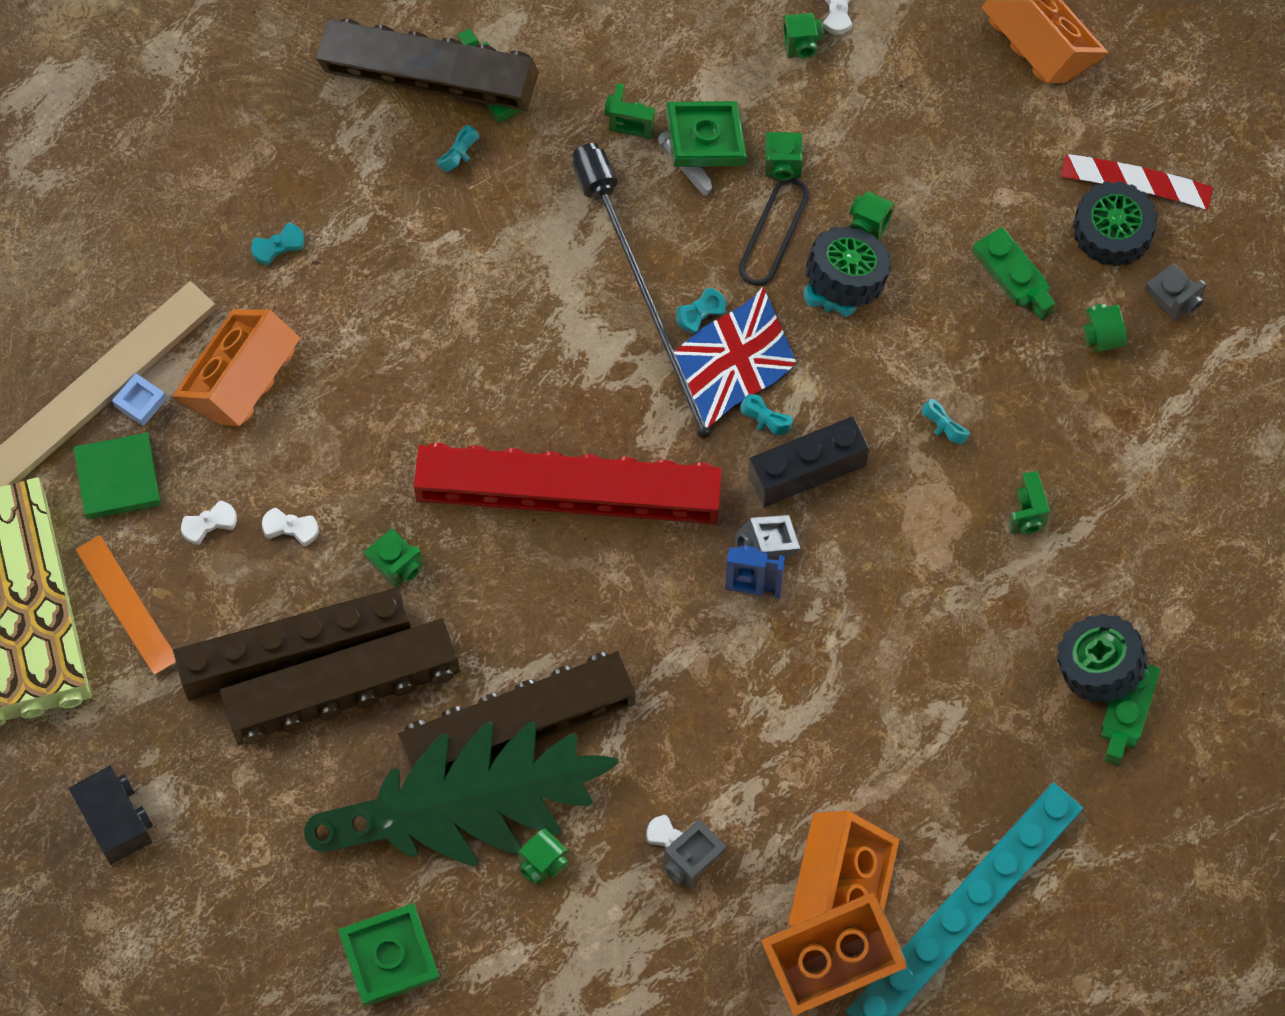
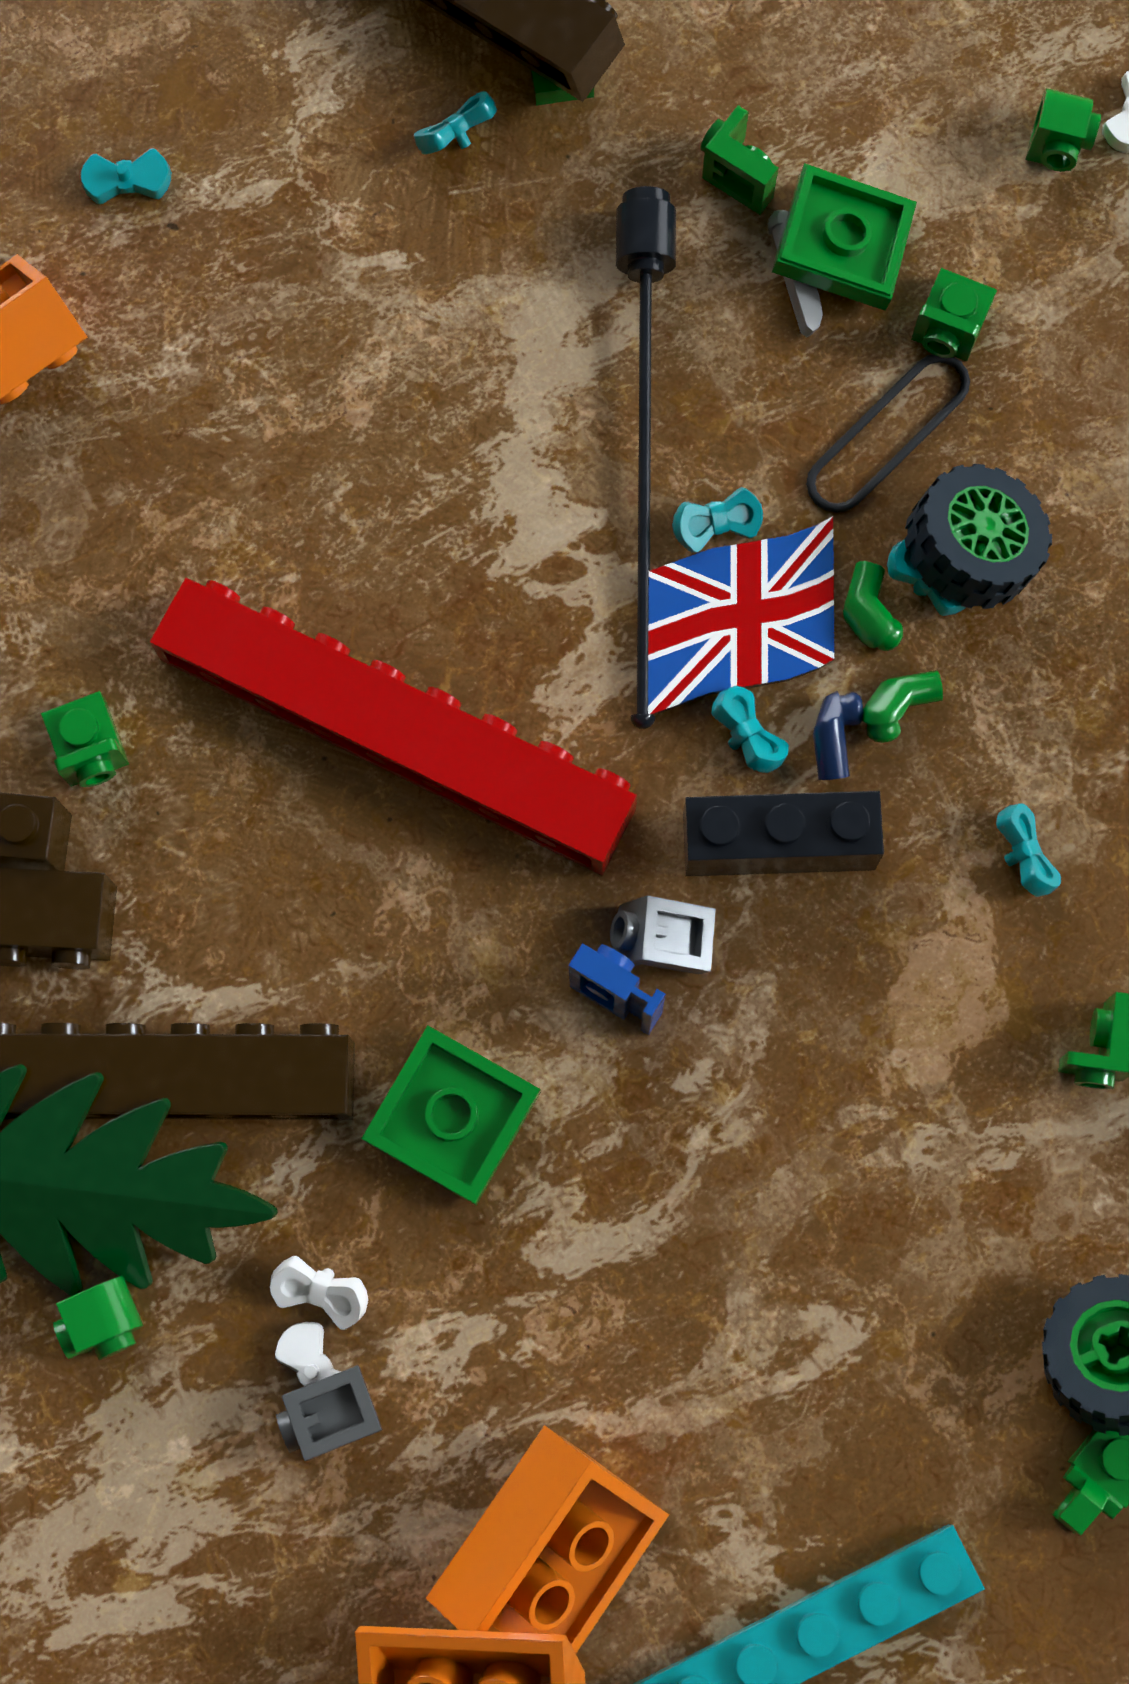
camera: 25 degrees right, 10 degrees up
(644, 797) = (298, 1283): none -> white piece
(690, 677) = (451, 1115): none -> green plate
(804, 330) = (864, 611): none -> green arm
(812, 403) = (829, 733): none -> dark blue arm
(838, 371) = (893, 699): none -> green arm
(871, 213) = (1051, 463): green plate -> none

